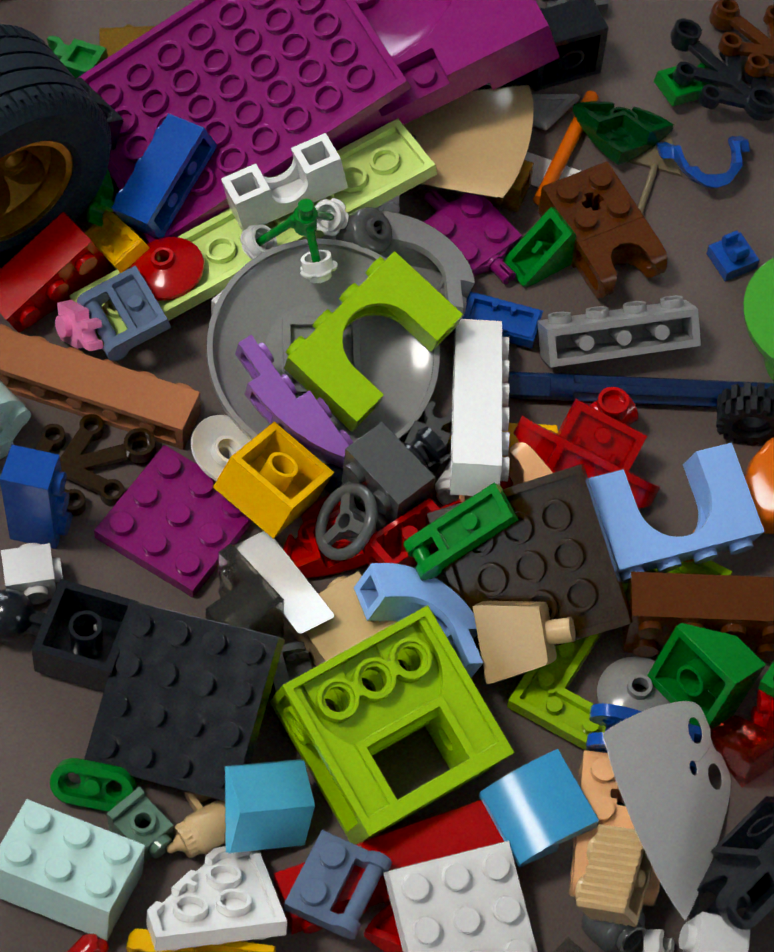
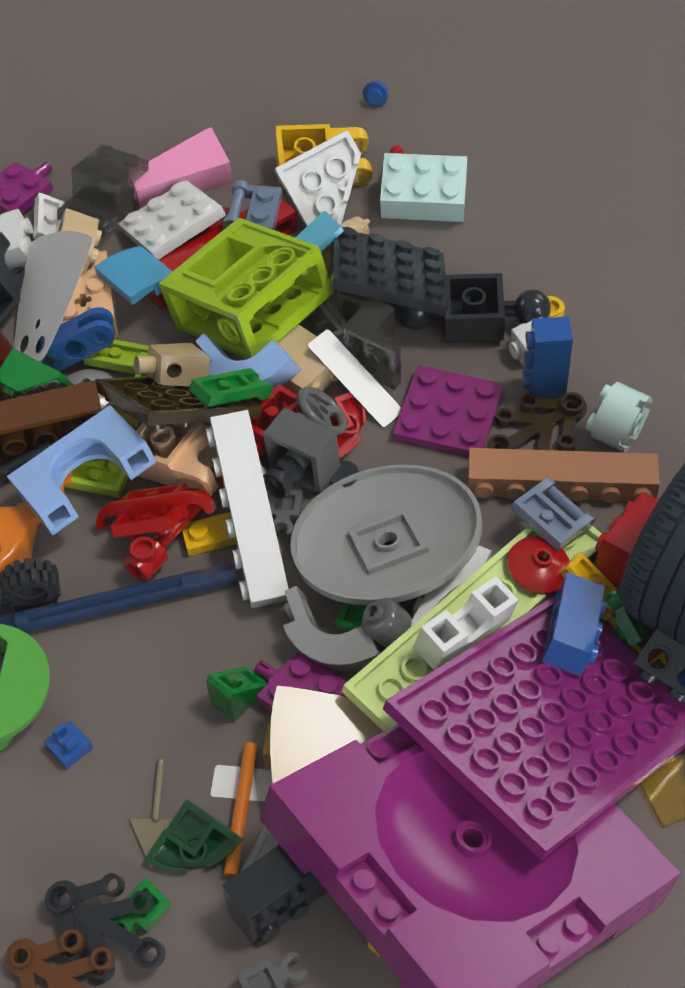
camera: 170 degrees right, 5 degrees down
(76, 327) = (586, 503): bright pink plate -> none
(94, 785) = (443, 241): green plate -> none
(132, 813) = (390, 224): sand green brick -> none
(213, 440) = (430, 444): white dish -> none
(273, 479) = (386, 427): yellow brick -> none
(301, 417) = (388, 471): medium lavender slope -> none
(325, 216) = (427, 560): white plant -> none
(389, 291) = (347, 564): lime arch -> none
(517, 320) = (254, 623): blue plate -> none
(606, 227) = (190, 722): reddish brown brick -> none
(618, 332) = (152, 626): light grey brick -> none
(737, 145) = (96, 809): blue helmet -> none

